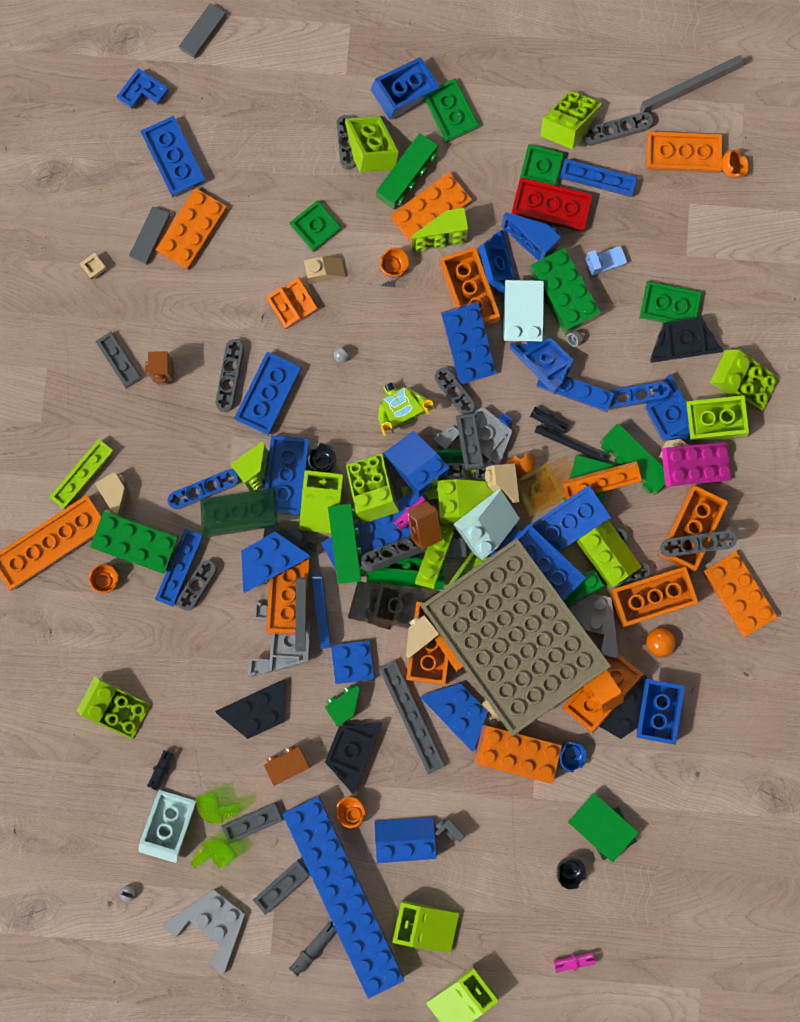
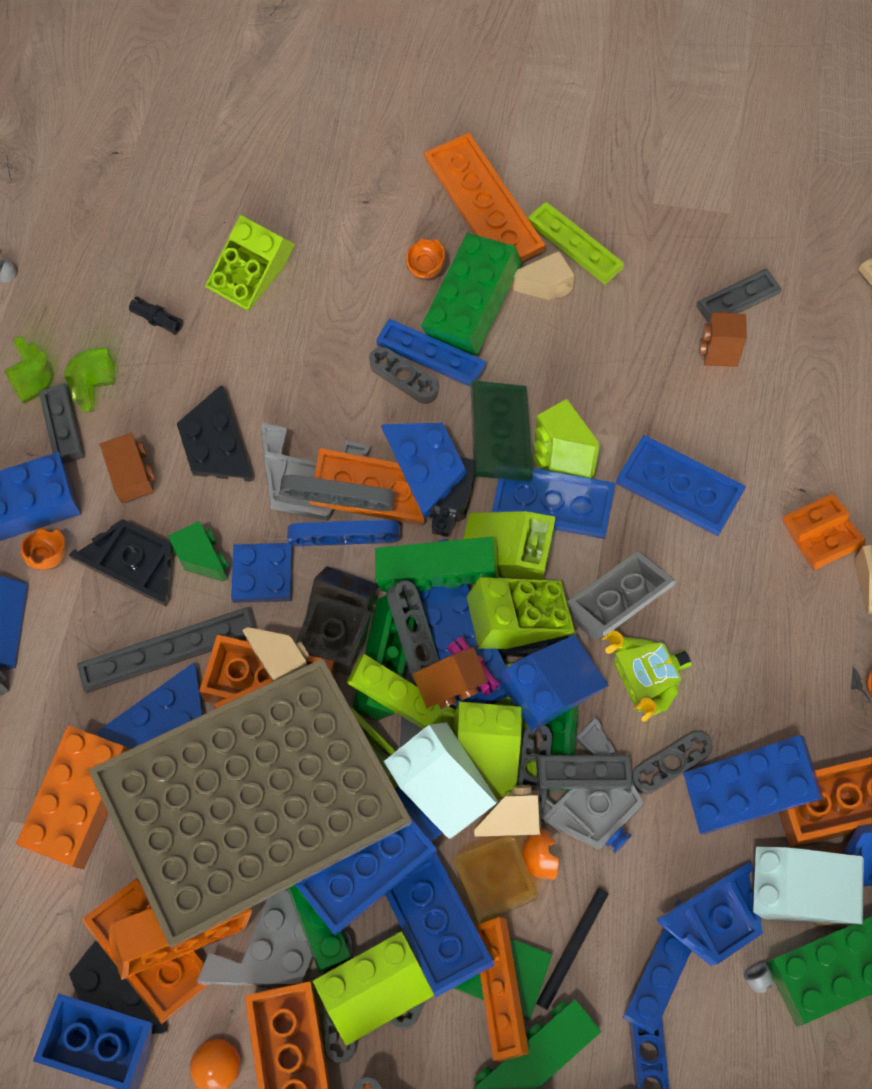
camera: 100 degrees right, 15 degrees down
(167, 826) = (78, 315): light aqua slope -> none
(202, 487) = (535, 392): blue beam -> none
(229, 375) = (711, 432): dark grey beam -> none
(322, 458) = (573, 551): black hair -> none
(340, 355) = (738, 592): light grey hinge -> none
(355, 425) = (618, 595): none -> light grey slope
(549, 420) = (615, 915): black pin -> none
(572, 755) = (56, 886): blue hair -> none

